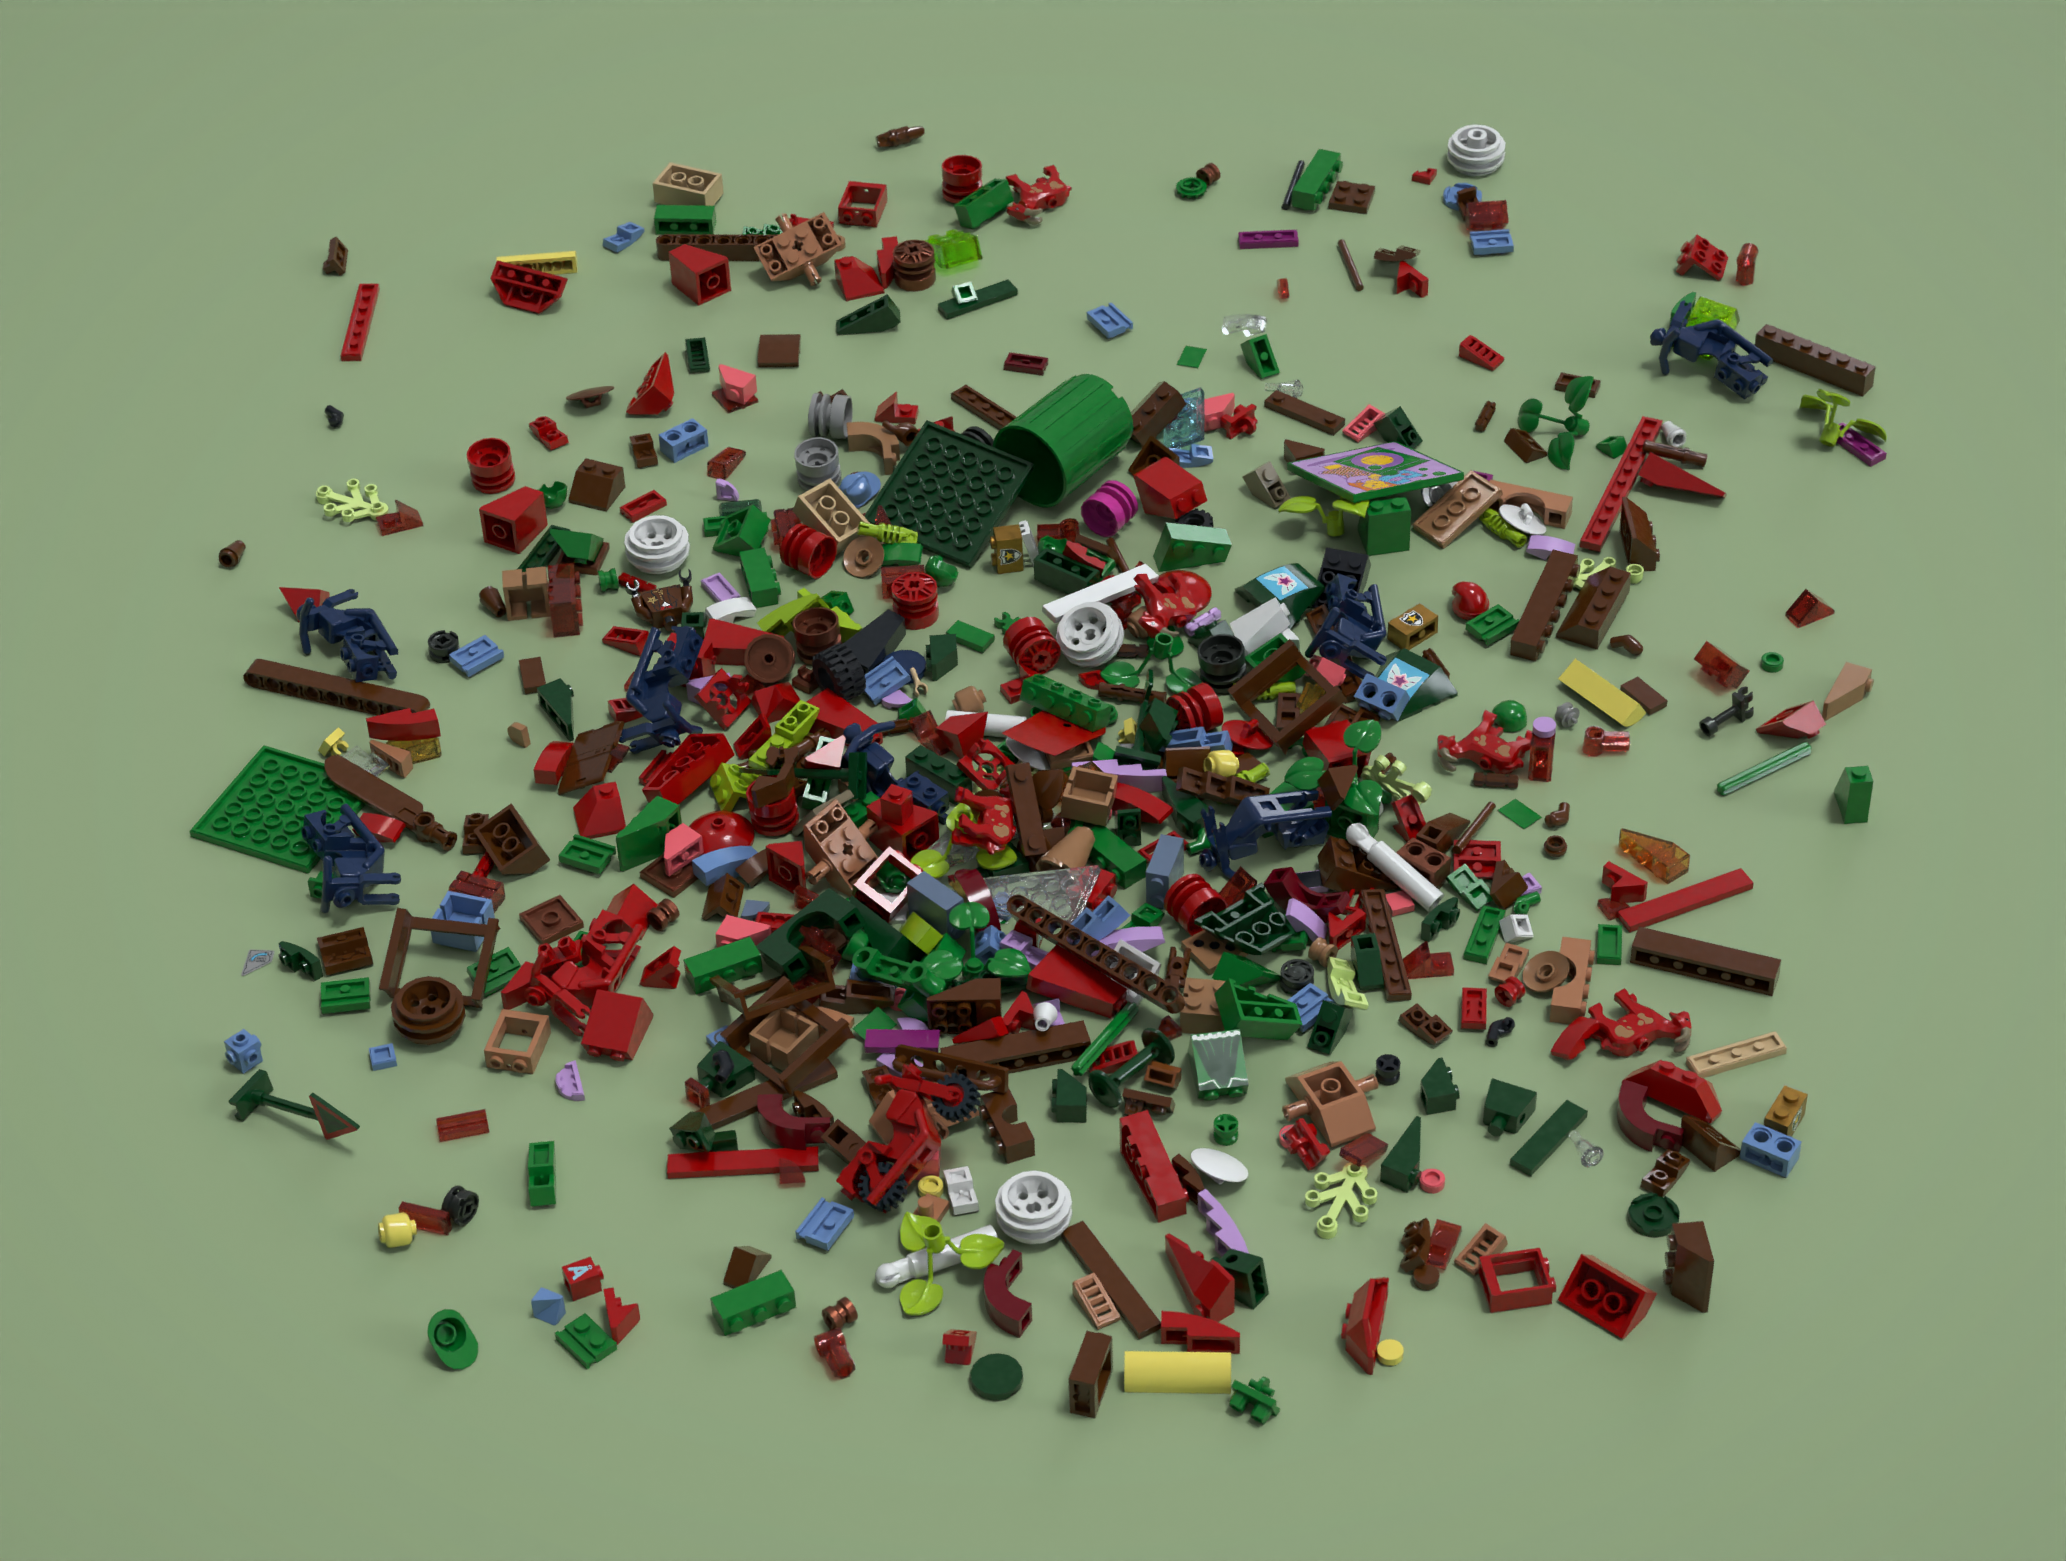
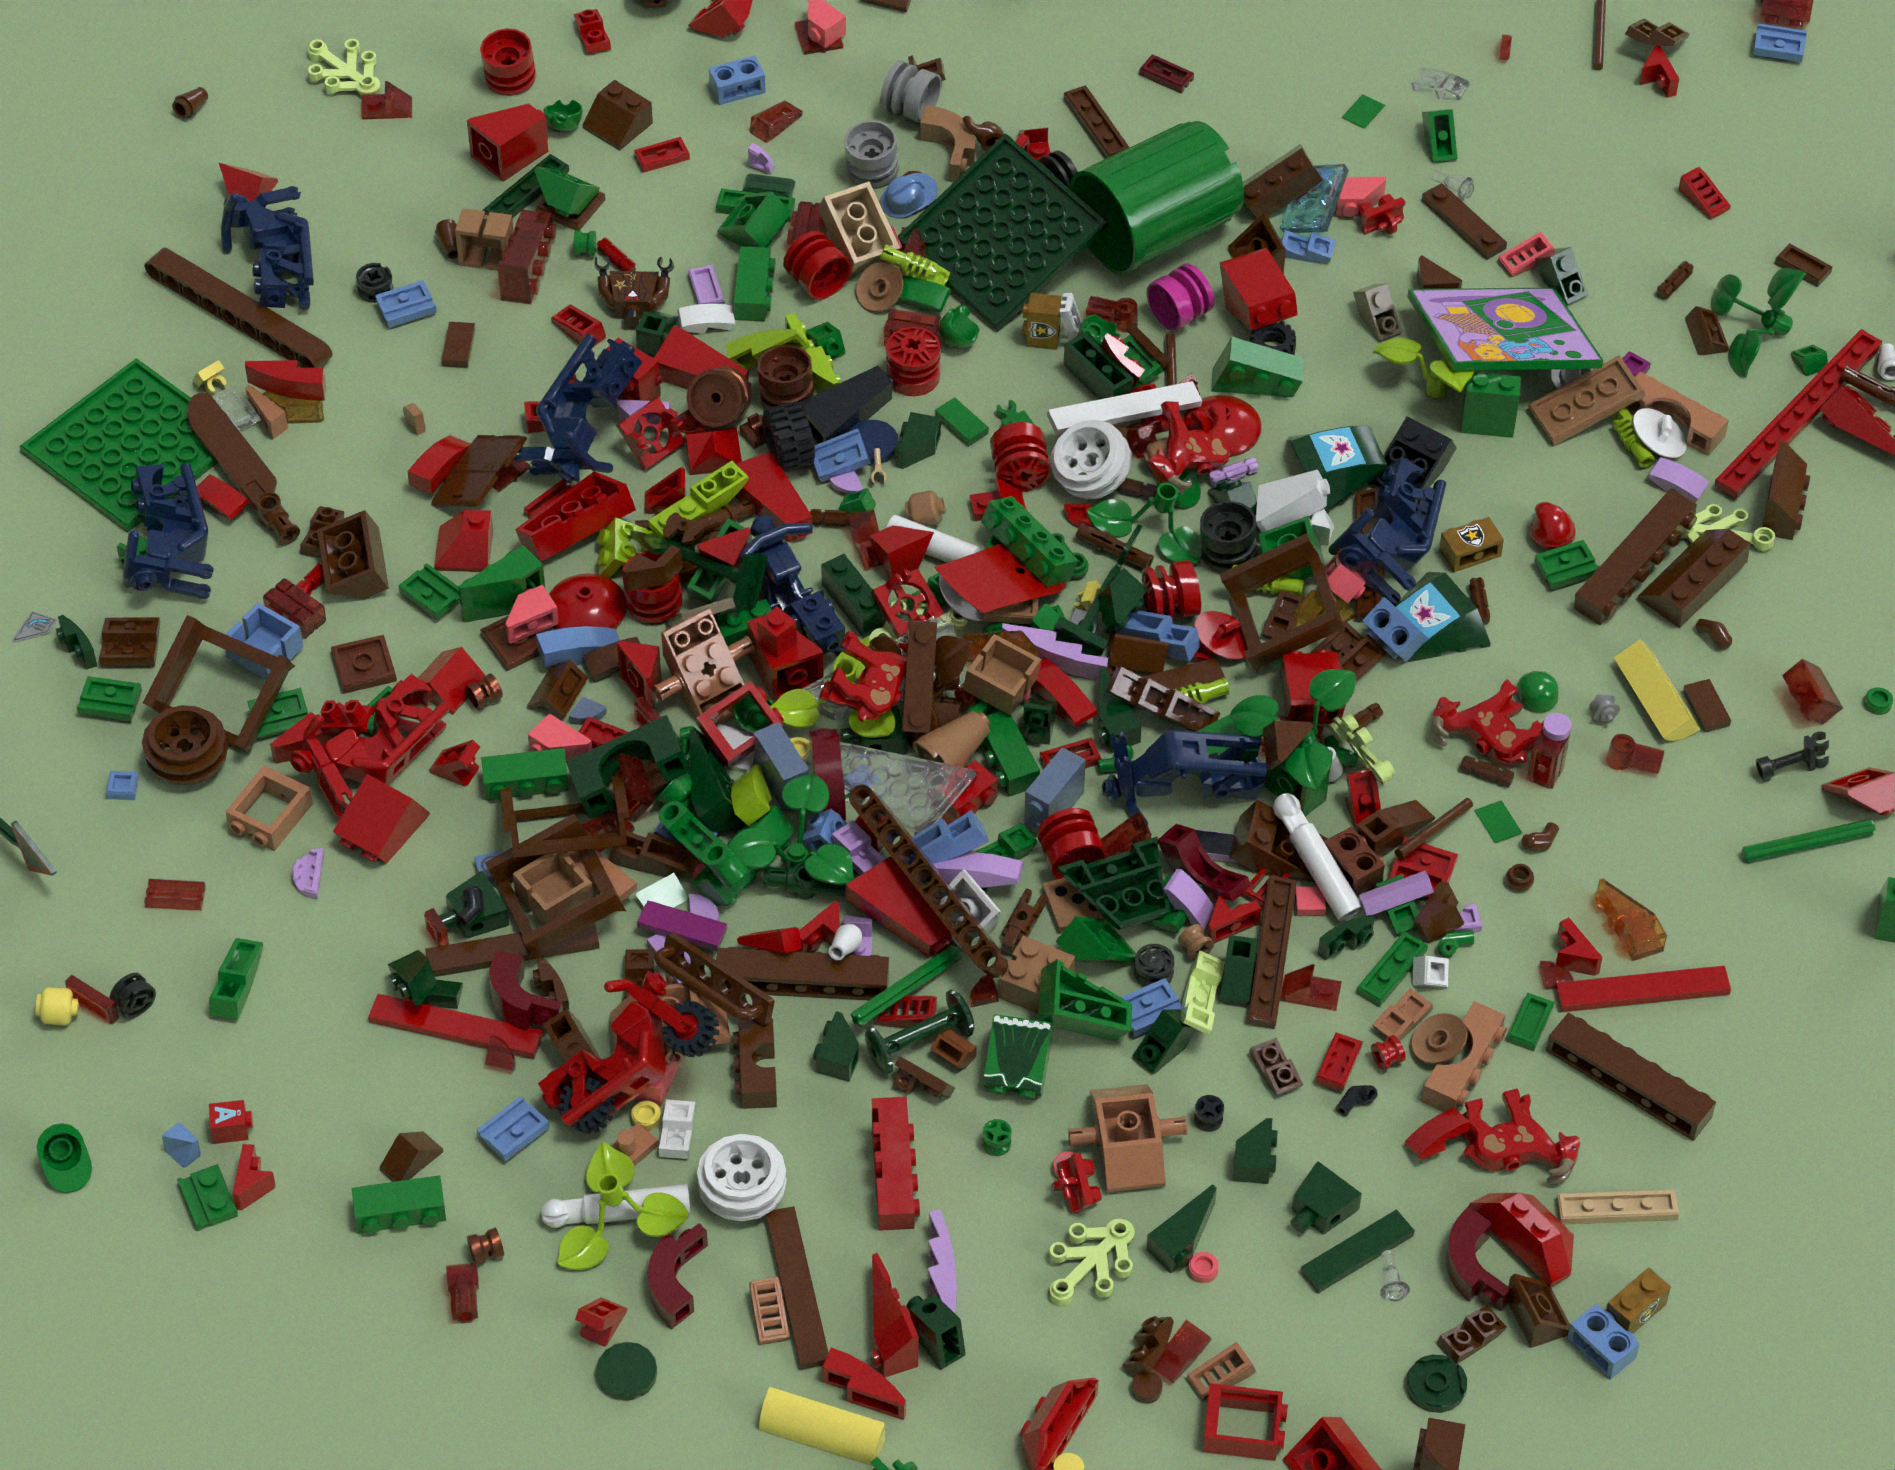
camera: 15 degrees right, 10 degrees up
(557, 702) = (472, 392): dark green slope -> none
(643, 450) = (689, 81): reddish brown slope -> none
(657, 544) = (652, 213): white wheel -> none
(895, 412) = (990, 102): red slope -> none
(965, 1006) = (765, 904): reddish brown slope -> none
(1090, 1374) = (723, 1402): reddish brown window -> none
(1109, 320) = (1284, 39): medium blue plate -> none
(1188, 1177) = (930, 1190): reddish brown slope -> none
(1219, 1165) = (970, 1181): white shield -> none
(1221, 762) = (1174, 669): light yellow head -> none
(1363, 1149) = (1139, 1208): clear red tile -> none
(1467, 877) = (1396, 893): none -> lavender piece

